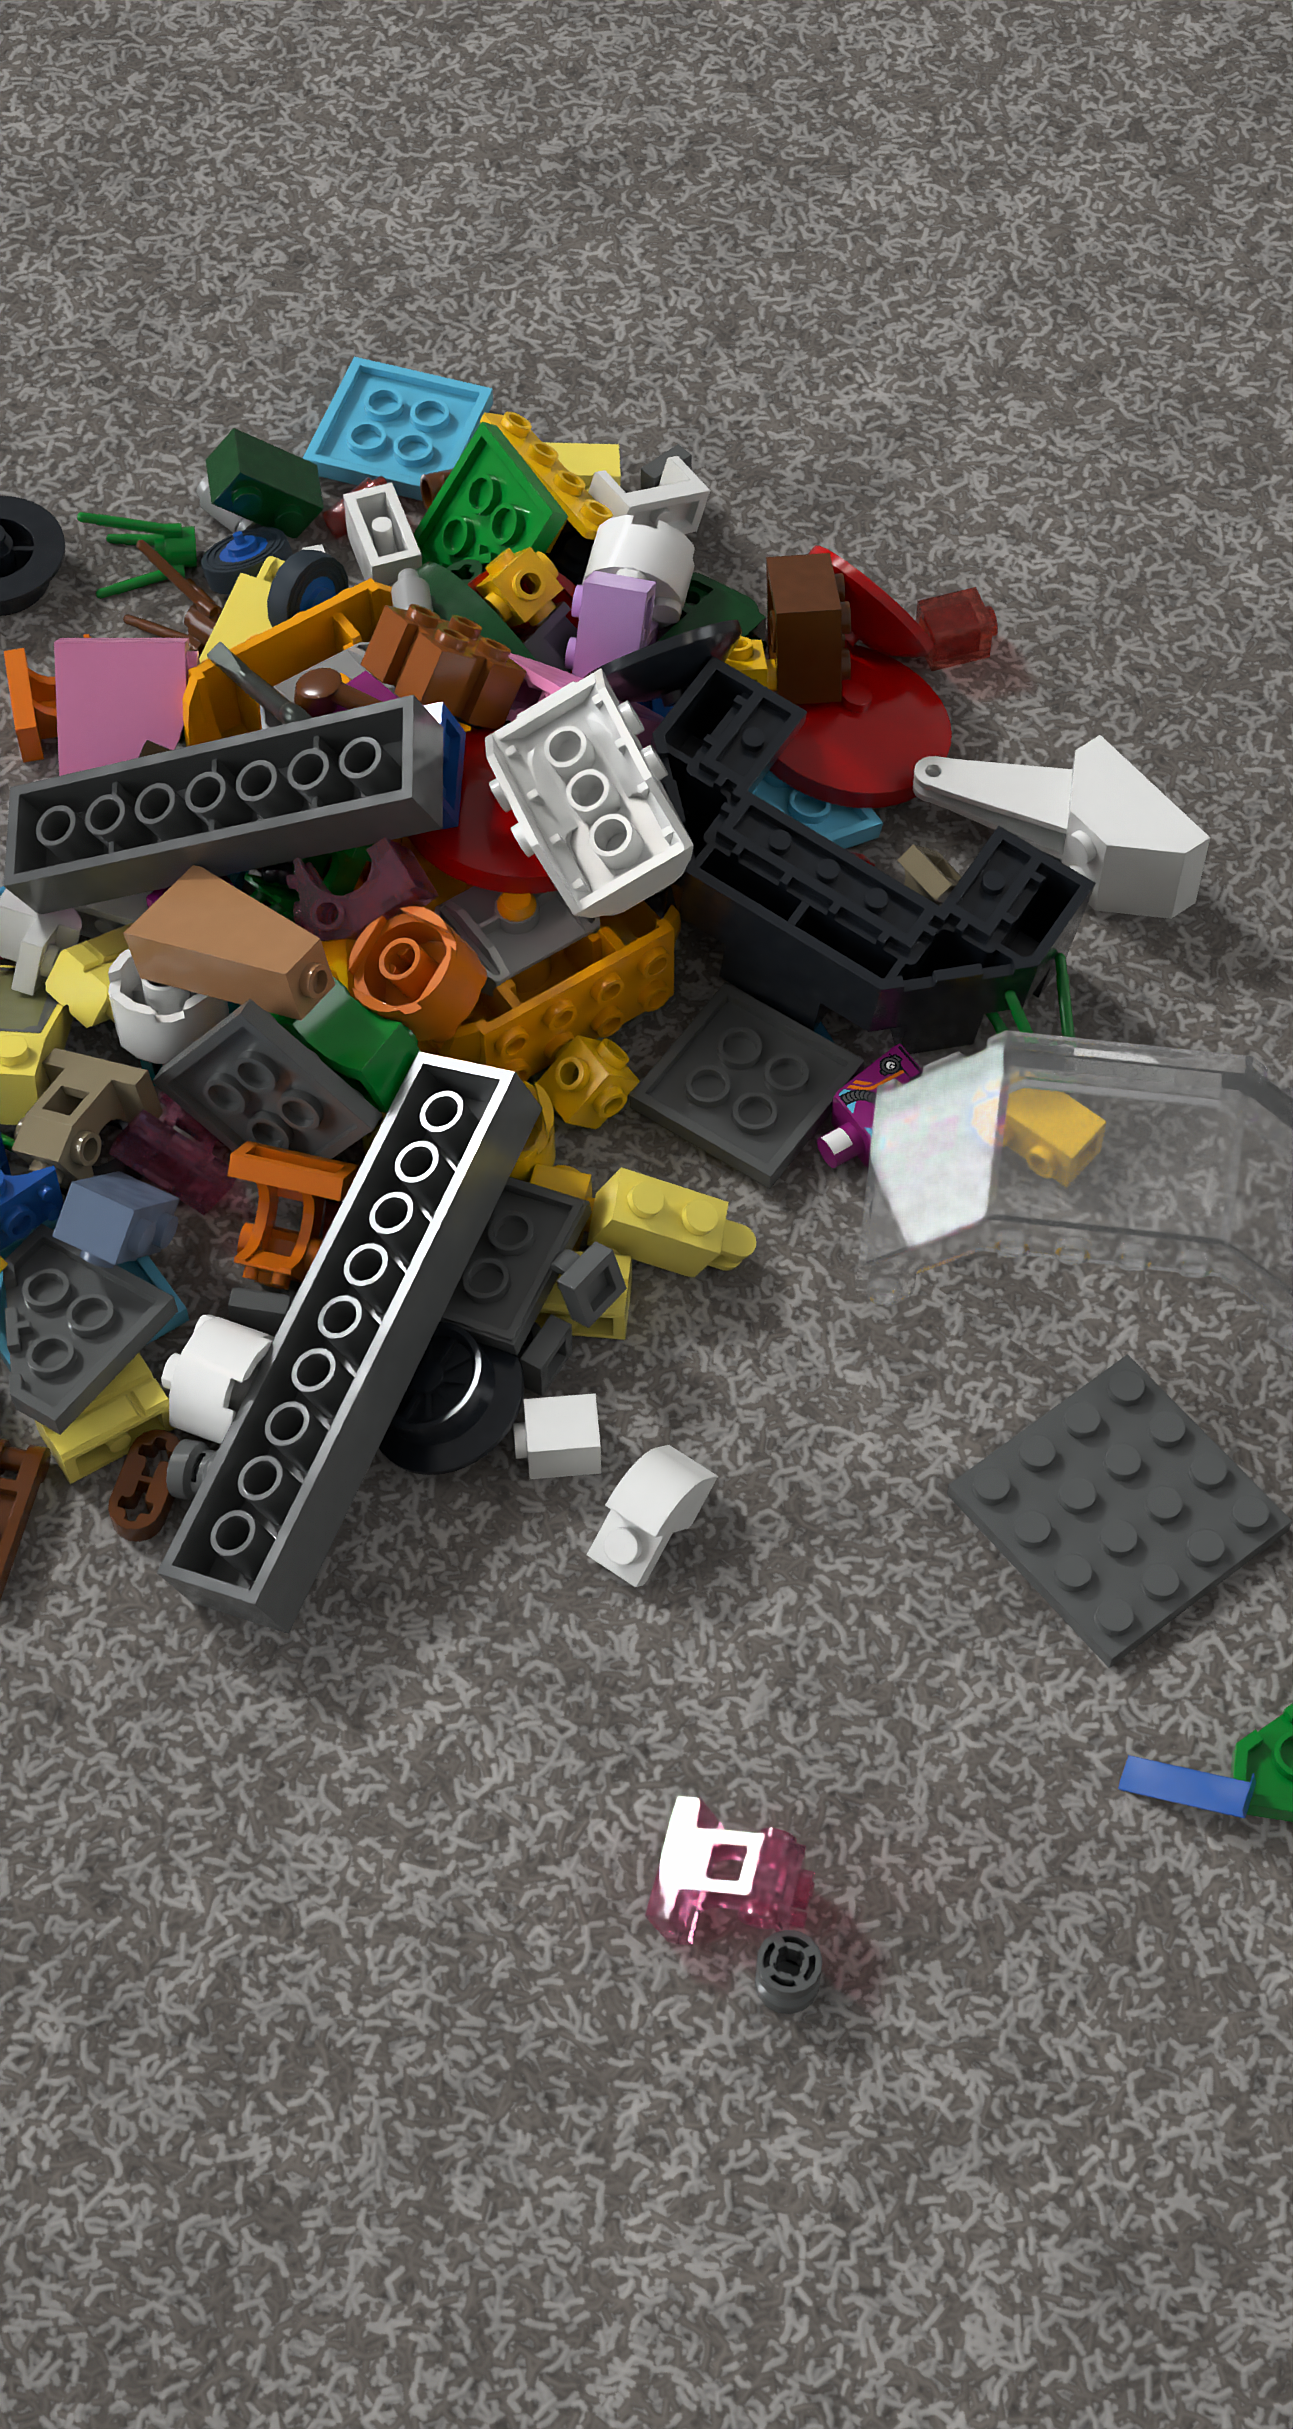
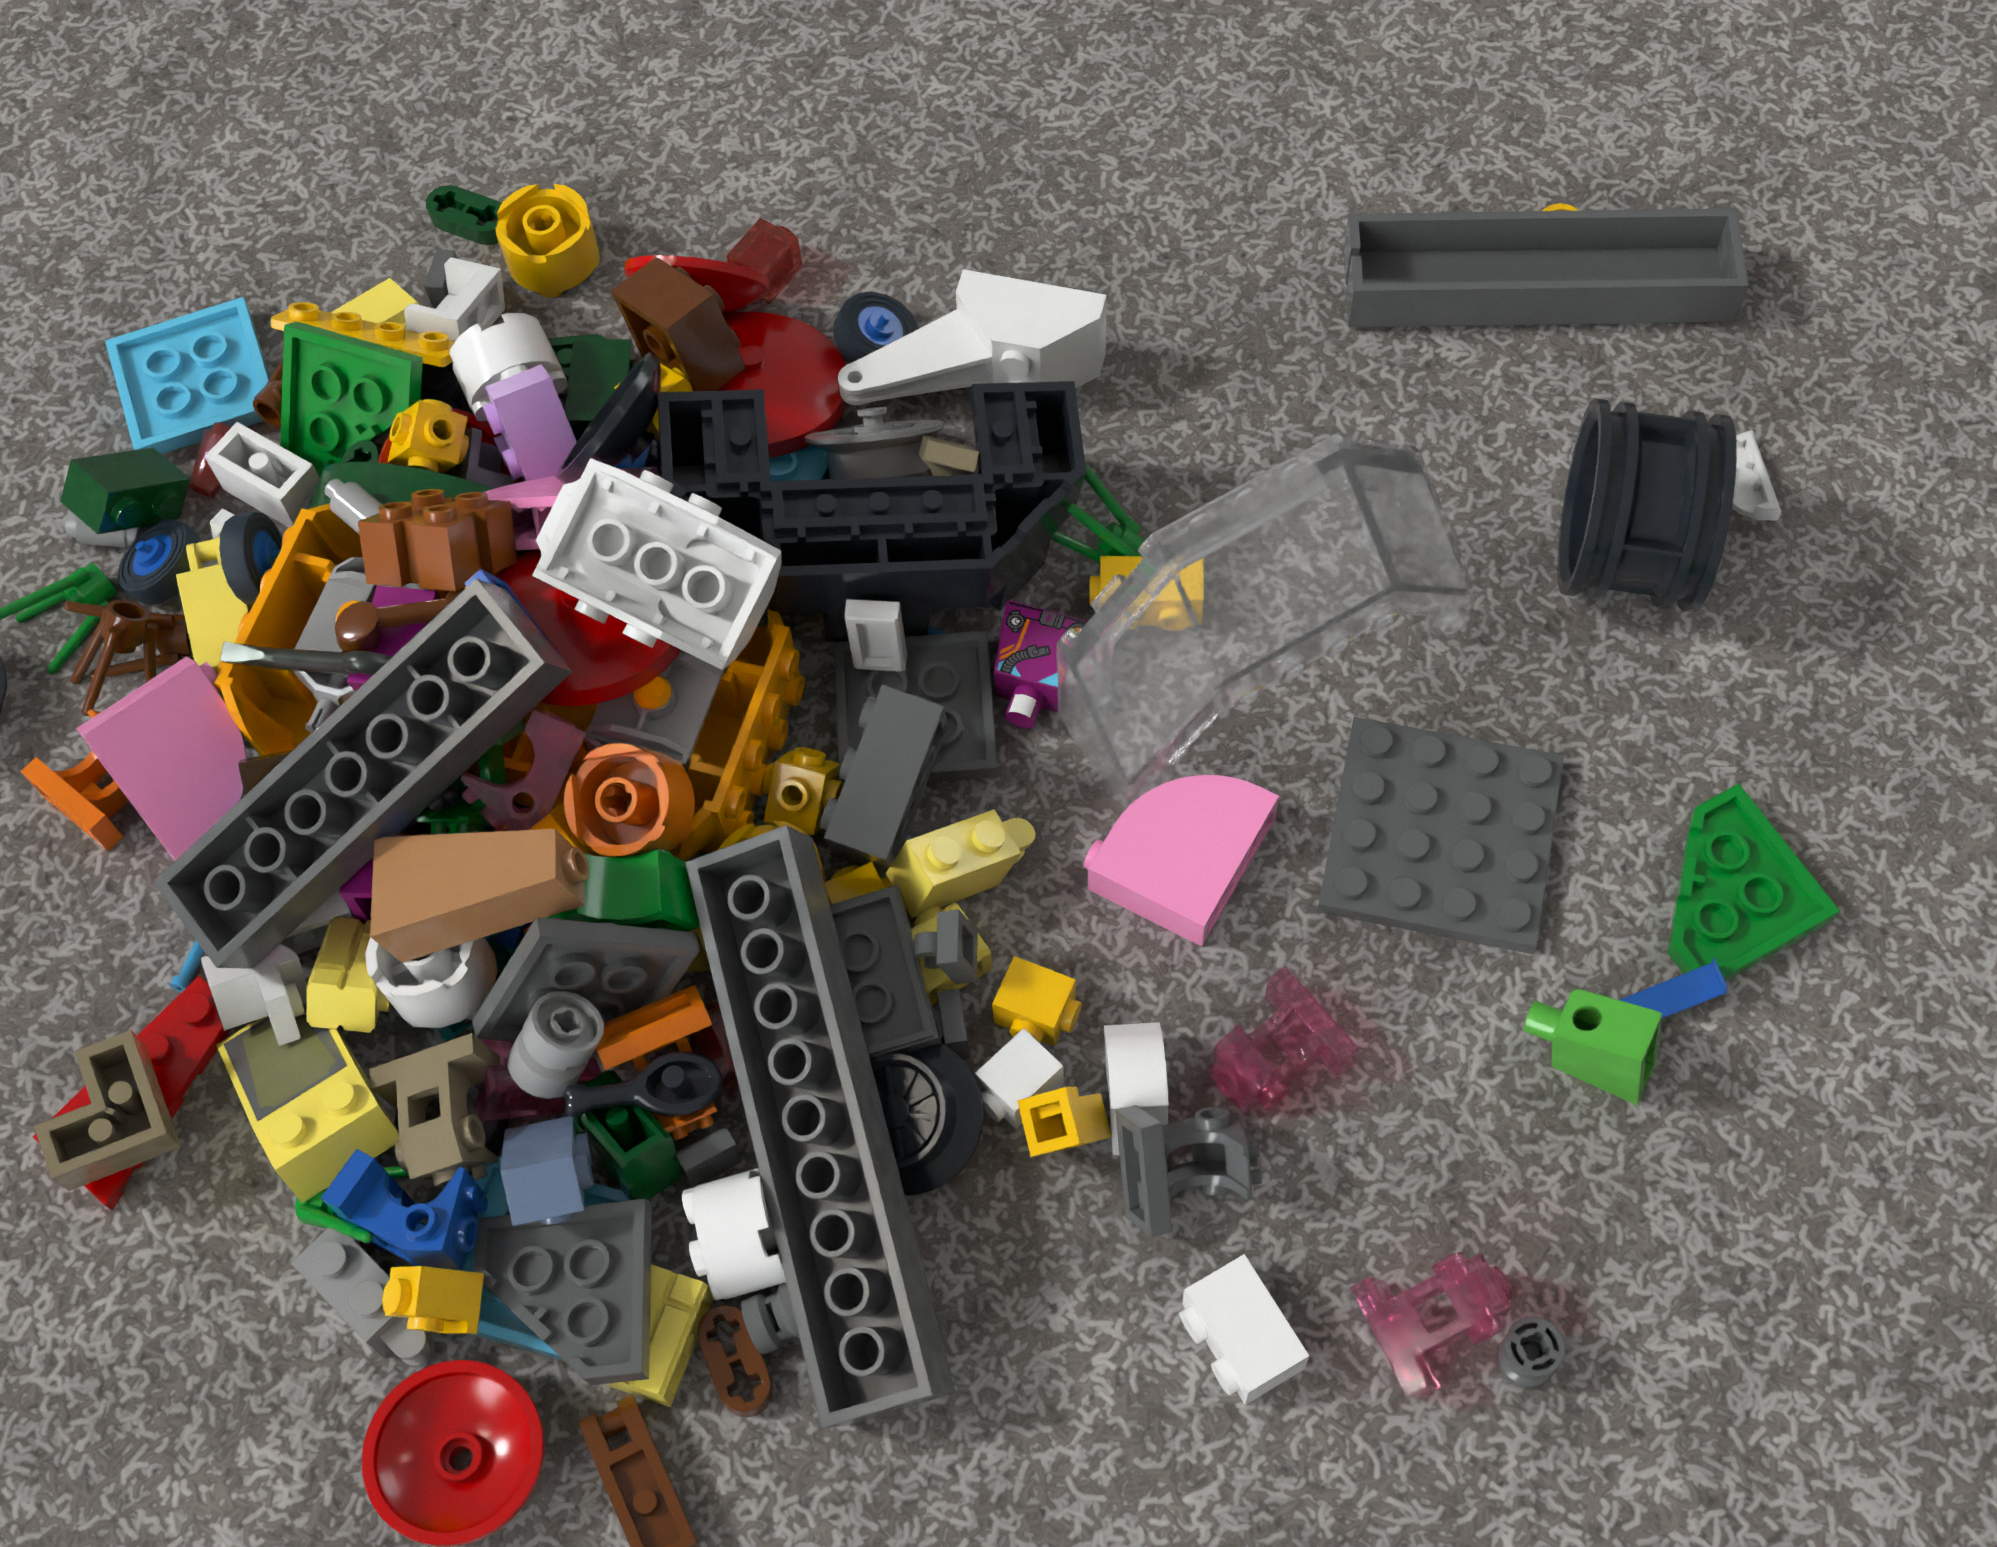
camera: 35 degrees left, 5 degrees up
(163, 592) = (122, 629): none -> reddish brown plant
(204, 1126) = (555, 1044): none -> light grey wheel
(205, 1245) = (630, 1145): none -> dark green brick
(264, 1224) = (666, 1086): none -> black piece
(562, 1490) = (1062, 1120): none -> yellow brick
(563, 1767) = (1243, 1330): none -> white brick
(630, 1387) = (1036, 1001): none -> yellow brick
(657, 1108) = (884, 777): none -> dark grey brick
(679, 1612) = (1219, 1161): none -> dark grey tile
(745, 431) = (465, 219): none -> dark green beam
(751, 990) = (876, 635): none -> white tile
(780, 494) = (547, 239): none -> yellow brick
(835, 1572) = (1299, 1029): none -> clear pink tile
(870, 1356) = (1182, 851): none -> bright pink brick
(885, 835) = (875, 447): none -> light grey wheel
(996, 735) = (870, 323): none -> black wheel
(1089, 1774) = (1600, 1041): none -> bright green torso

